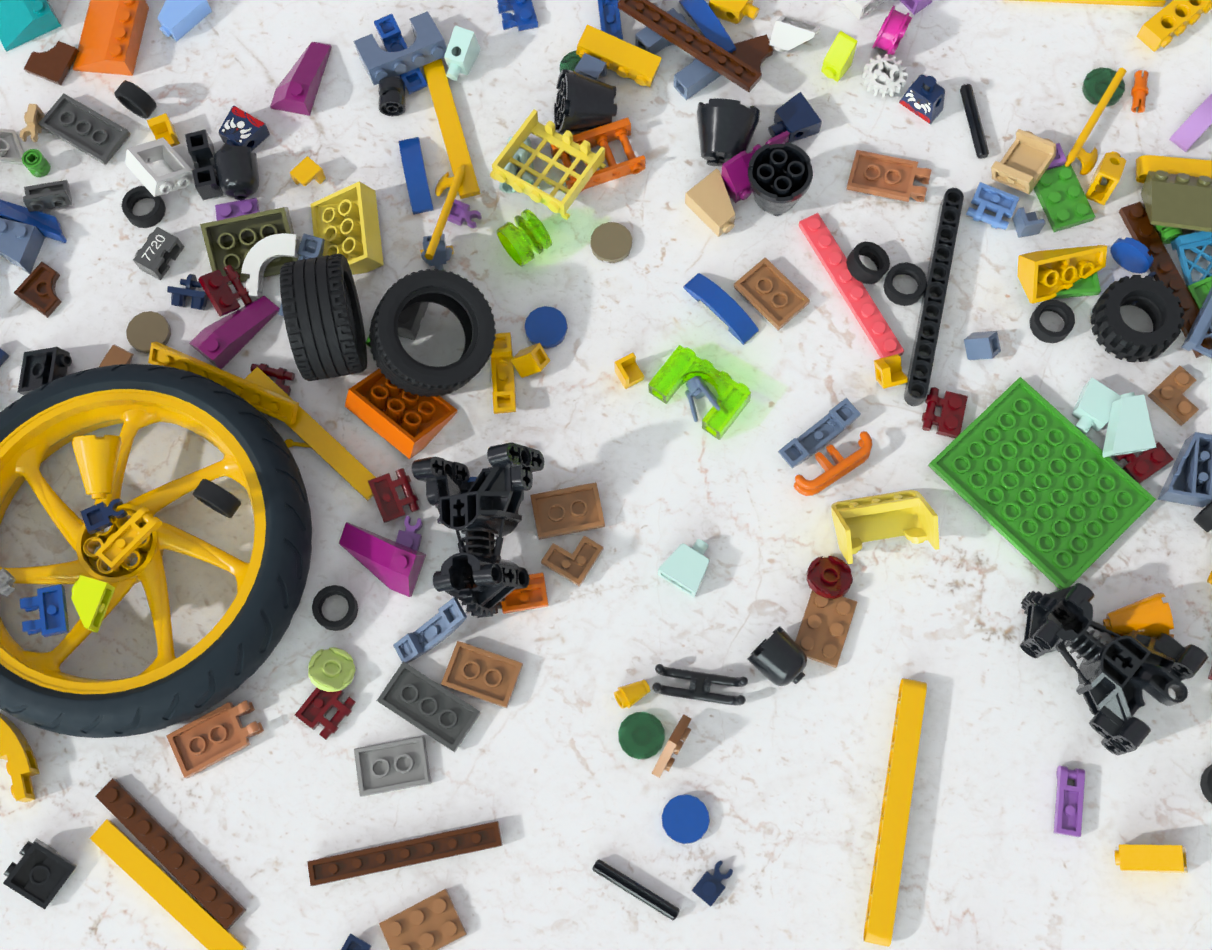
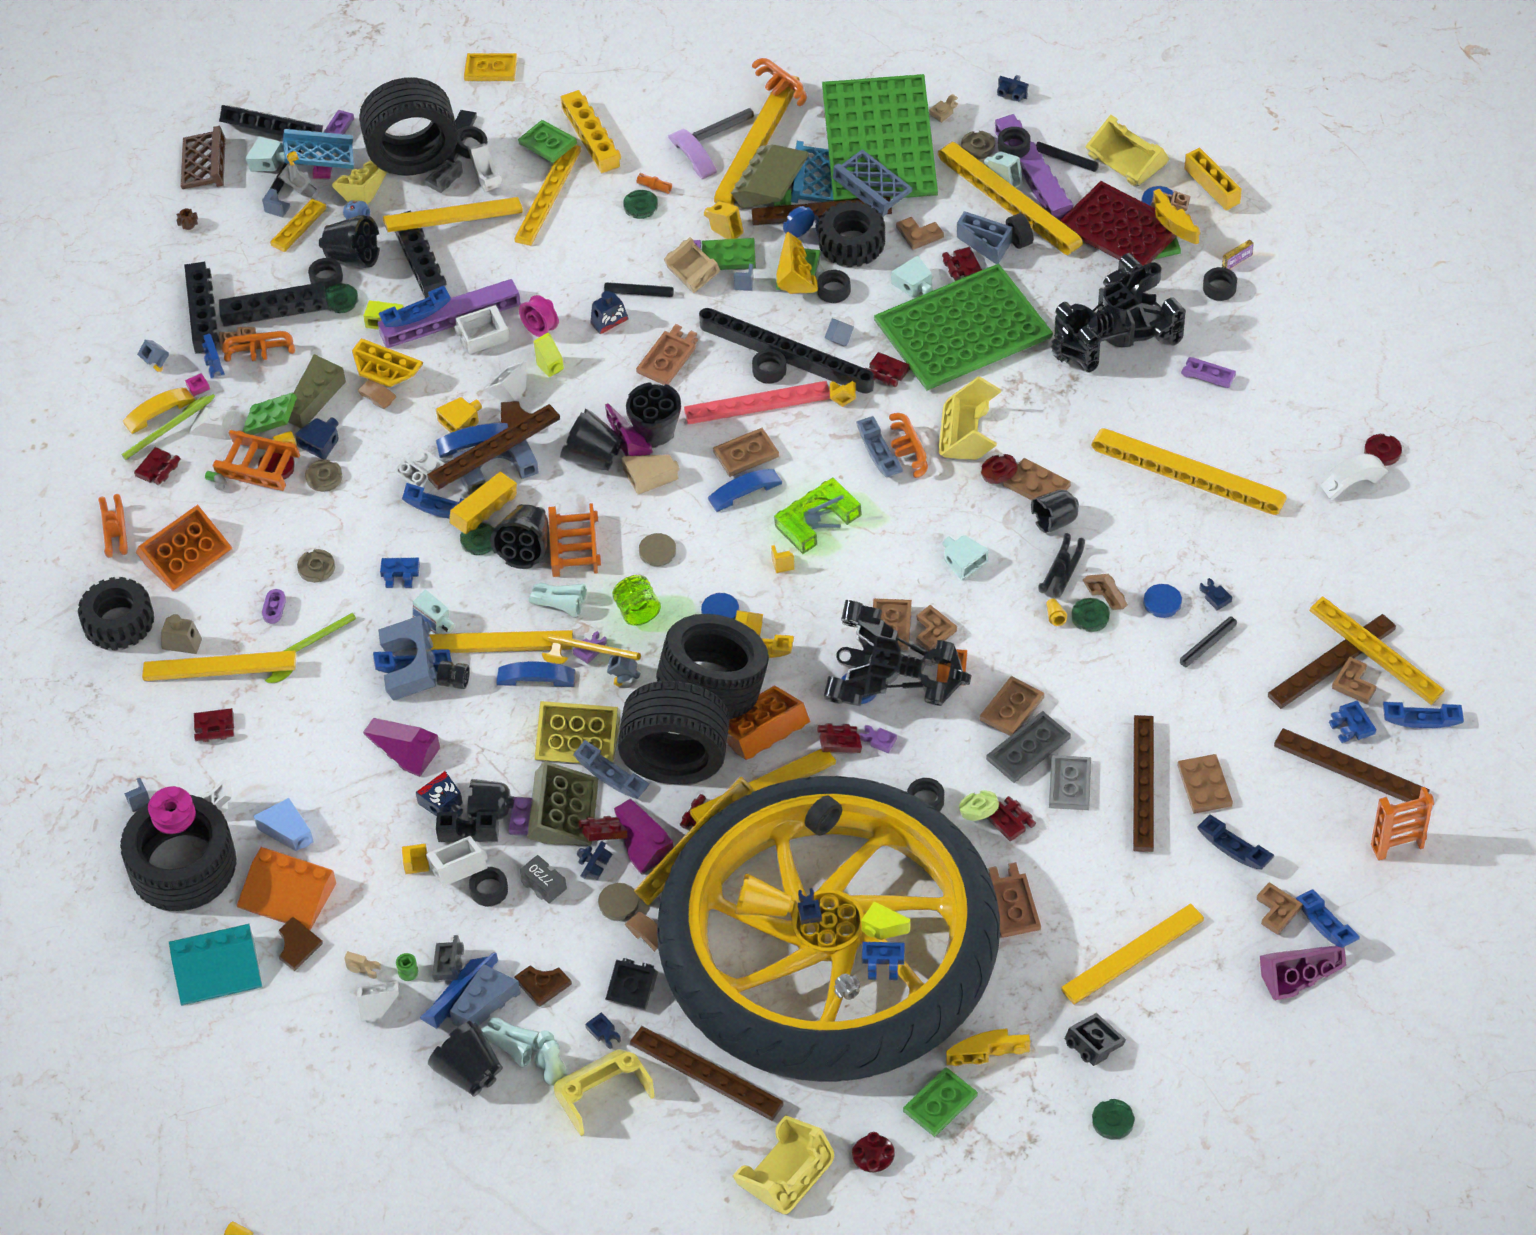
camera: 75 degrees left, 20 degrees down
(84, 129) = (384, 924): dark grey plate -> none
(128, 537) = (835, 891): yellow plate -> none
(135, 99) = (375, 870): black tyre -> none
(171, 853) = (1098, 948): reddish brown plate -> none
(262, 254) = (582, 790): white arch -> none
(306, 172) = (505, 749): yellow panel -> none
(386, 559) = (899, 749): magenta wedge -> none
(432, 632) = (967, 725): sand blue slope -> none
(564, 143) = (559, 552): light yellow window -> none
(591, 67) = (487, 522): sand blue panel -> none
(796, 118) = (592, 397): dark blue torso -> none
(860, 271) = (743, 382): black tyre -> none
(885, 75) = (575, 333): white gear -> none
(993, 200) = (716, 293): medium blue plate -> none
(1089, 159) = (694, 233): yellow piece -> none
(1128, 427) = (939, 258): light aqua slope -> none
(1147, 616) = (1087, 286): light orange cone -> none
(1152, 858) = (1261, 334): yellow slope -> none

